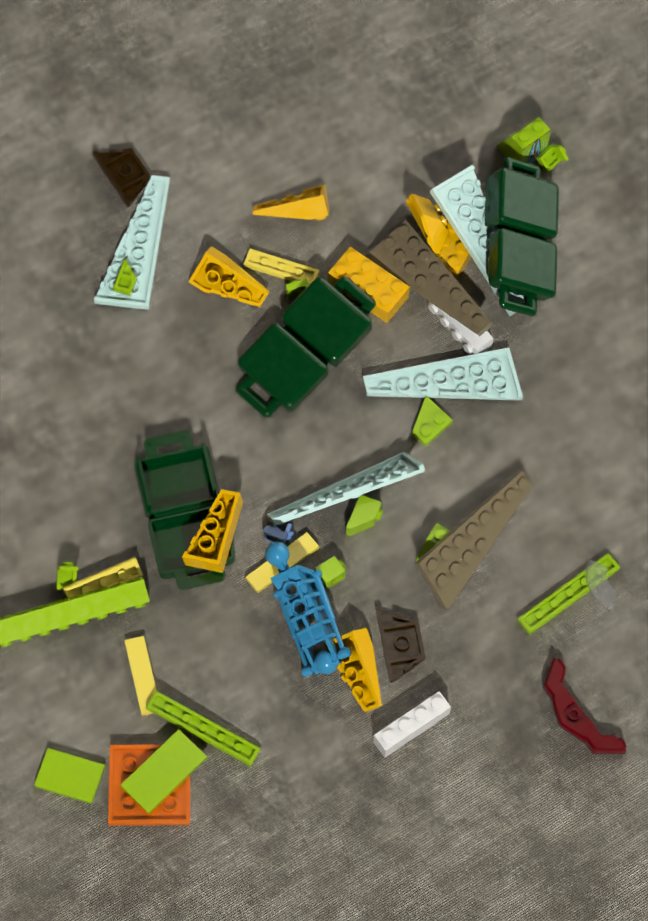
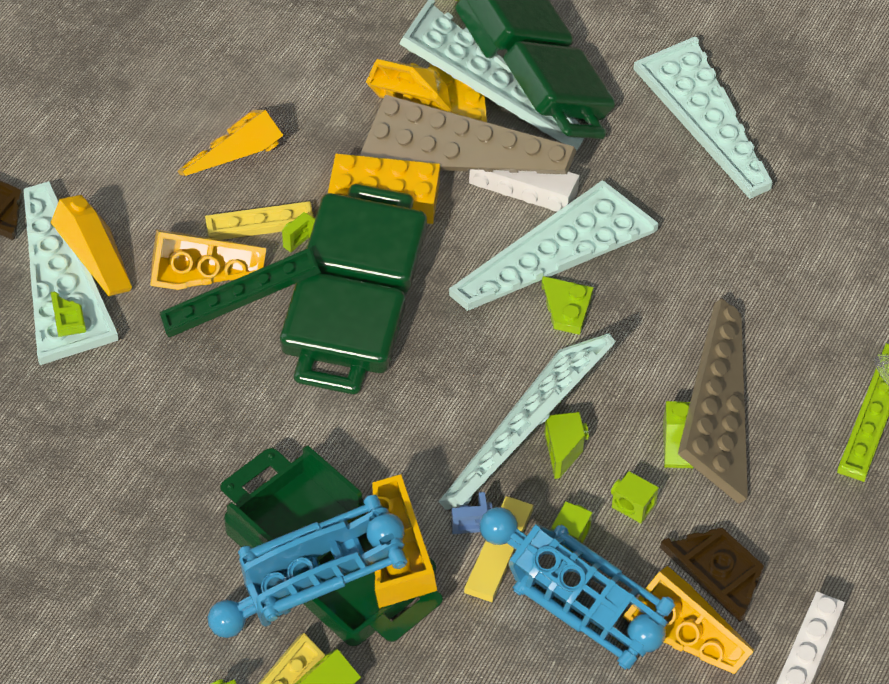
camera: 30 degrees left, 15 degrees down
(149, 511) = (288, 571): none -> dark azure piece
(171, 232) = (91, 242): none -> yellow wedge
(233, 316) = (239, 292): none -> dark green tile
(380, 572) = (634, 496): none -> lime brick
(613, 311) = (694, 96): none -> light aqua wing

